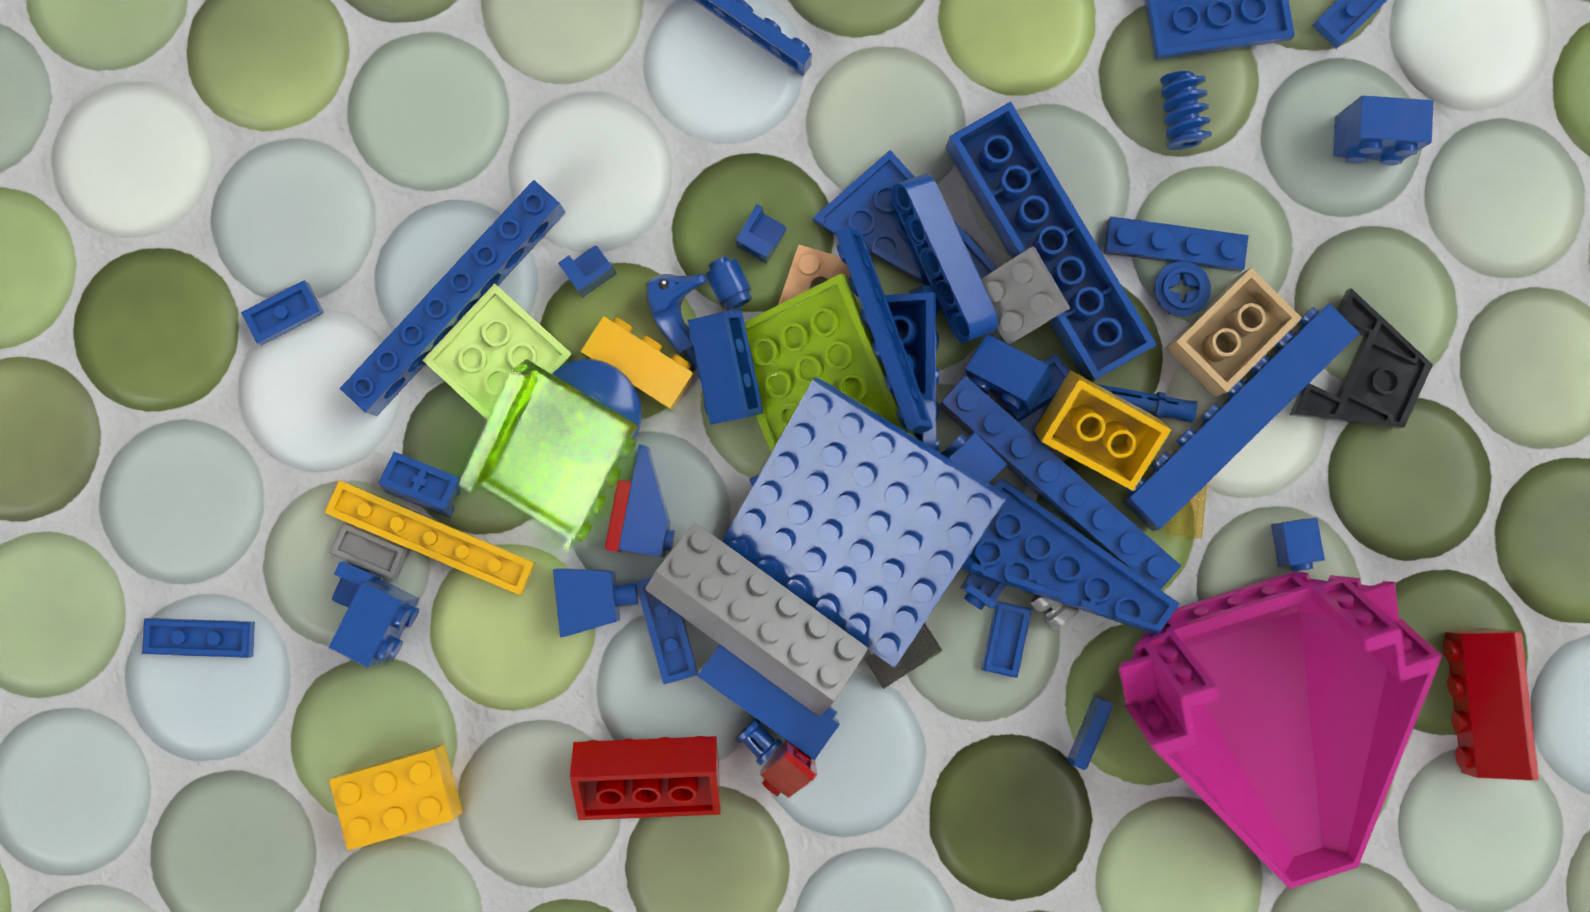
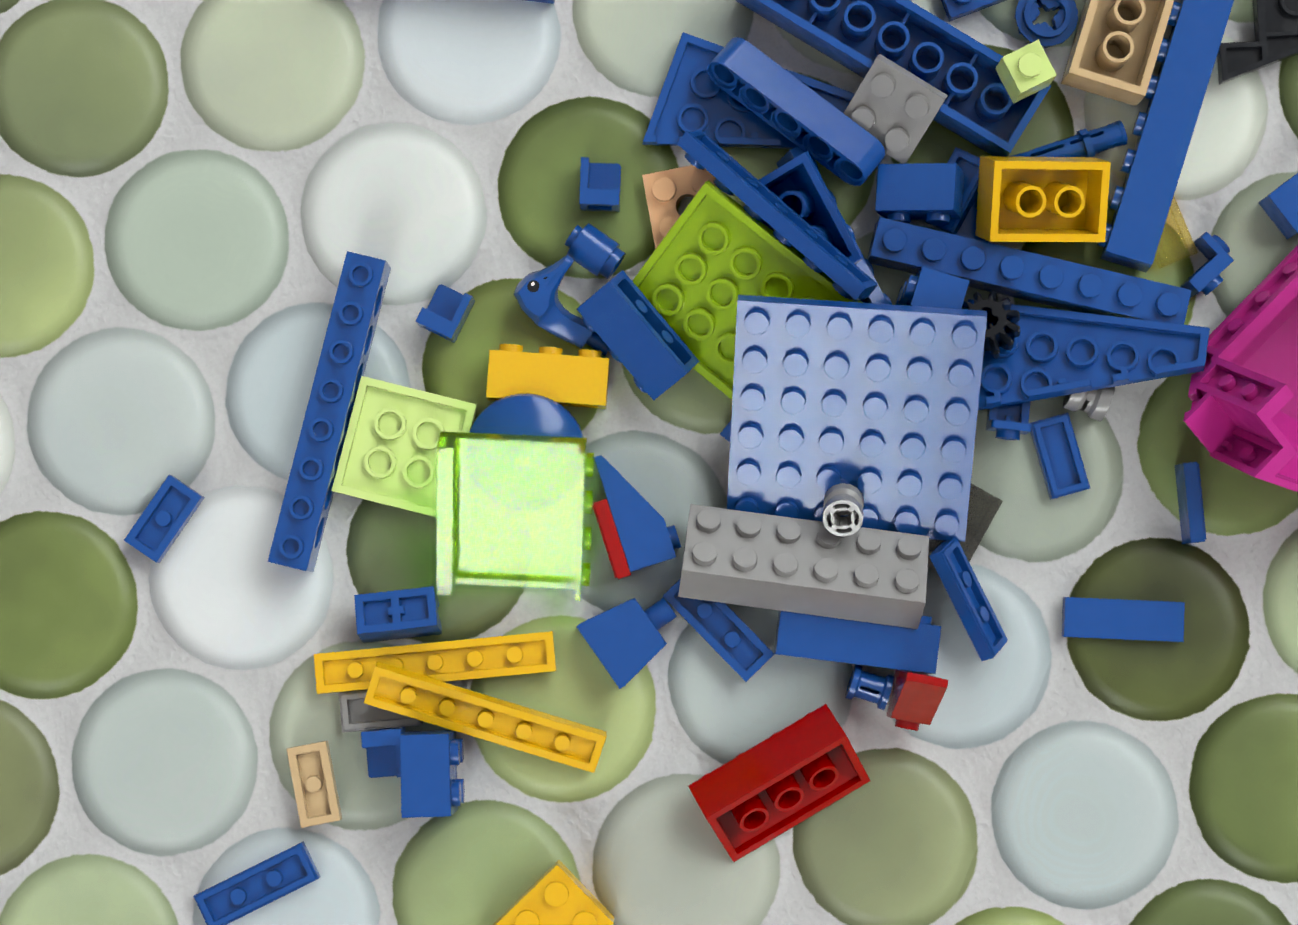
camera: 20 degrees left, 0 degrees up
(285, 582) = (314, 784): none -> tan plate
(443, 601) = (485, 717): none -> yellow plate
(810, 591) = (843, 500): none -> light grey wheel
(873, 714) = (968, 598): none -> blue tile
(987, 795) = (1123, 619): none -> blue tile
(1018, 511) = (1002, 319): none -> black gear
(1142, 322) = (1025, 71): none -> yellowish green brick
(1200, 560) = (1208, 276): none -> blue bracket

